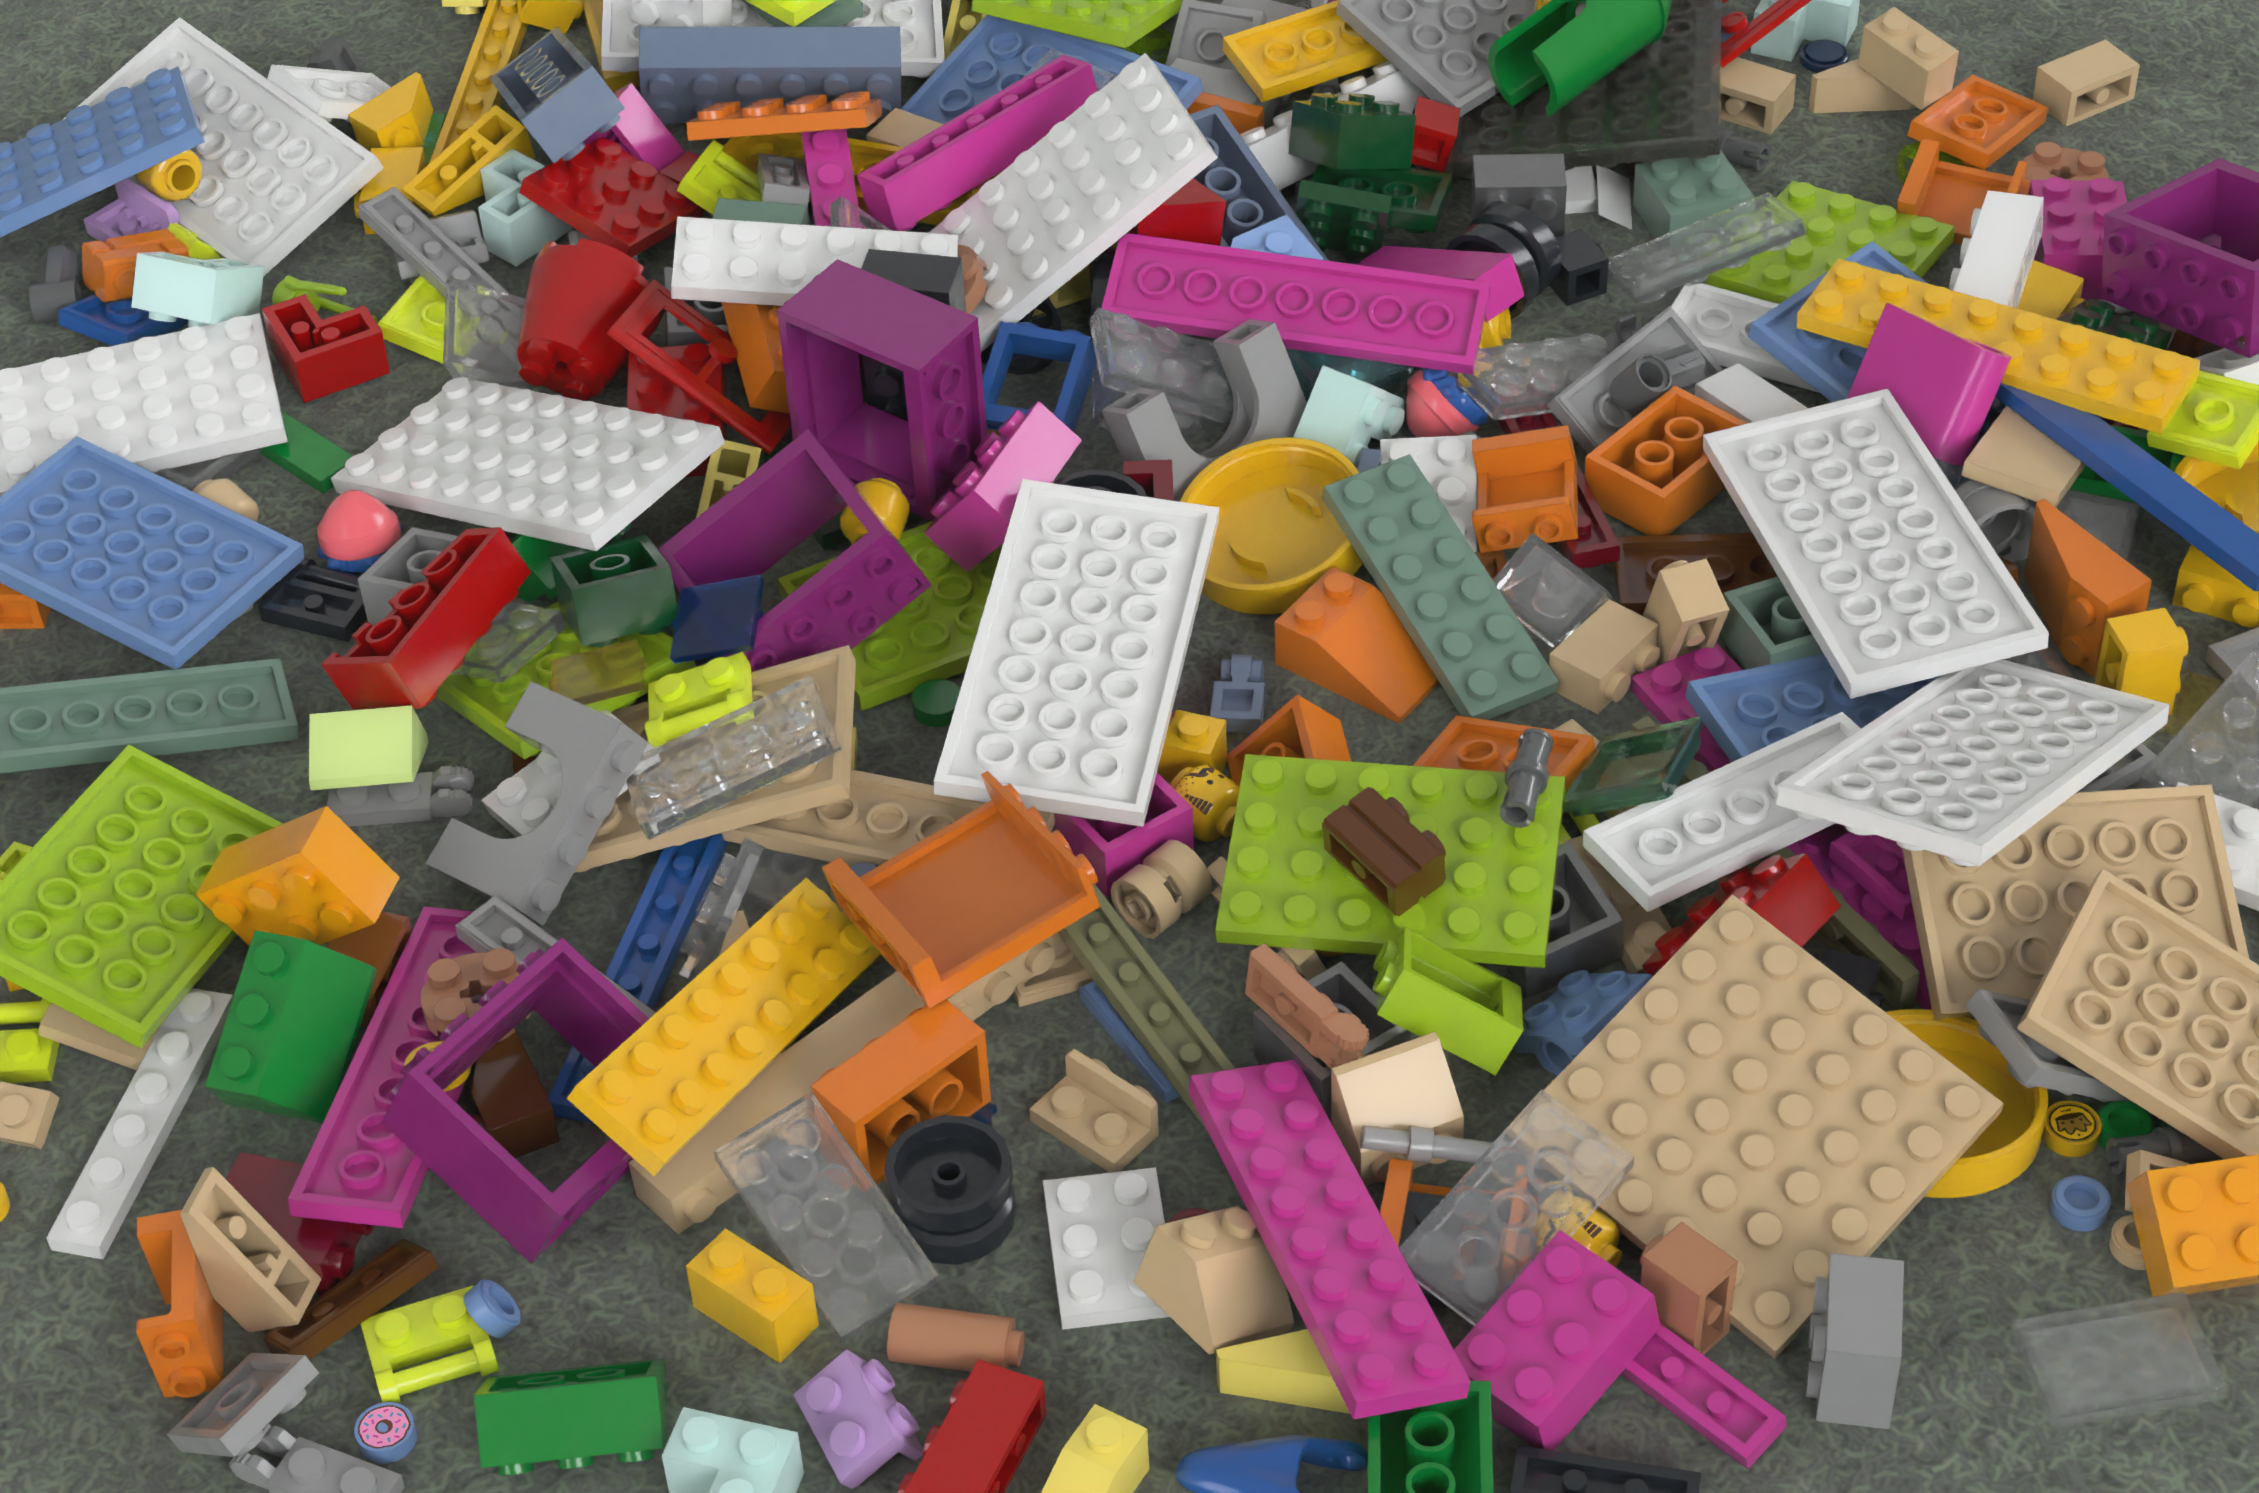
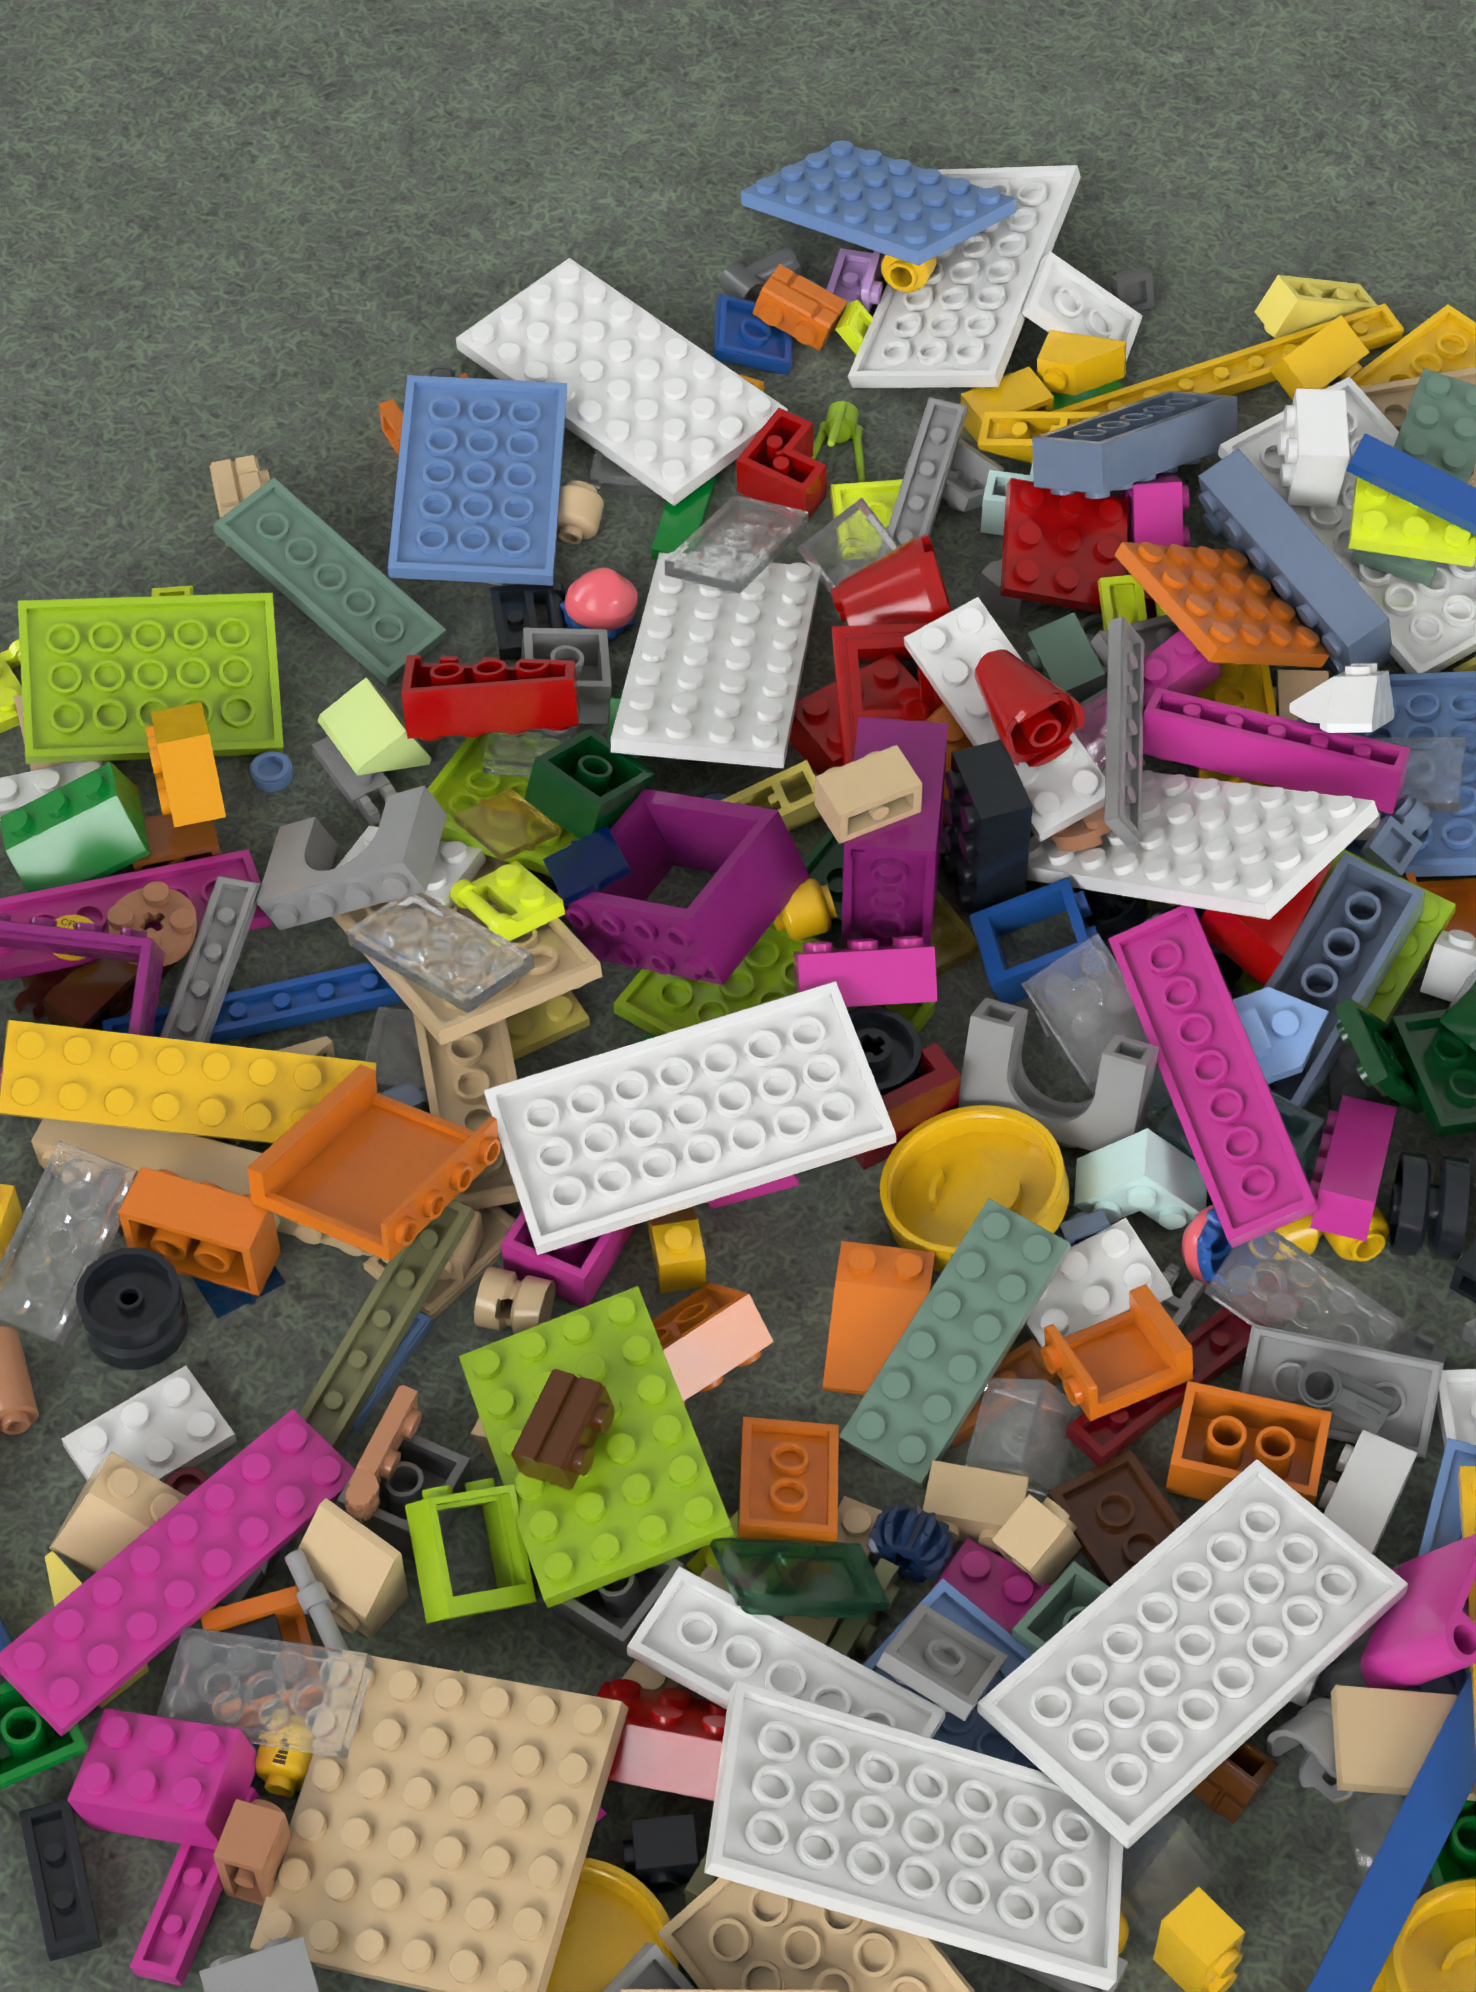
camera: 60 degrees right, 10 degrees up
(195, 288) = (785, 363): light aqua brick -> none
(391, 407) = (736, 544): none -> clear plate
(718, 907) = (342, 1022): clear plate -> none
(835, 222) = (1027, 708): none -> red cone
(886, 322) = (868, 794): none -> tan brick
(896, 202) = (1124, 732): none -> light grey tile
(978, 69) = (1349, 701): none -> white wedge
(1098, 1113) = (268, 1371): tan bracket -> none
(1212, 800) = (627, 1273): yellow head -> none
(1240, 694) = (764, 1263): sand blue plate -> none
(1526, 778) = (692, 1494): dark grey pin -> none
(1575, 1015) = (534, 1655): medium blue plate -> none
(1621, 698) = (911, 1541): none -> dark blue gear
(1792, 696) = (942, 1661): none -> light grey plate
(2079, 585) = (1266, 1859): orange slope -> none

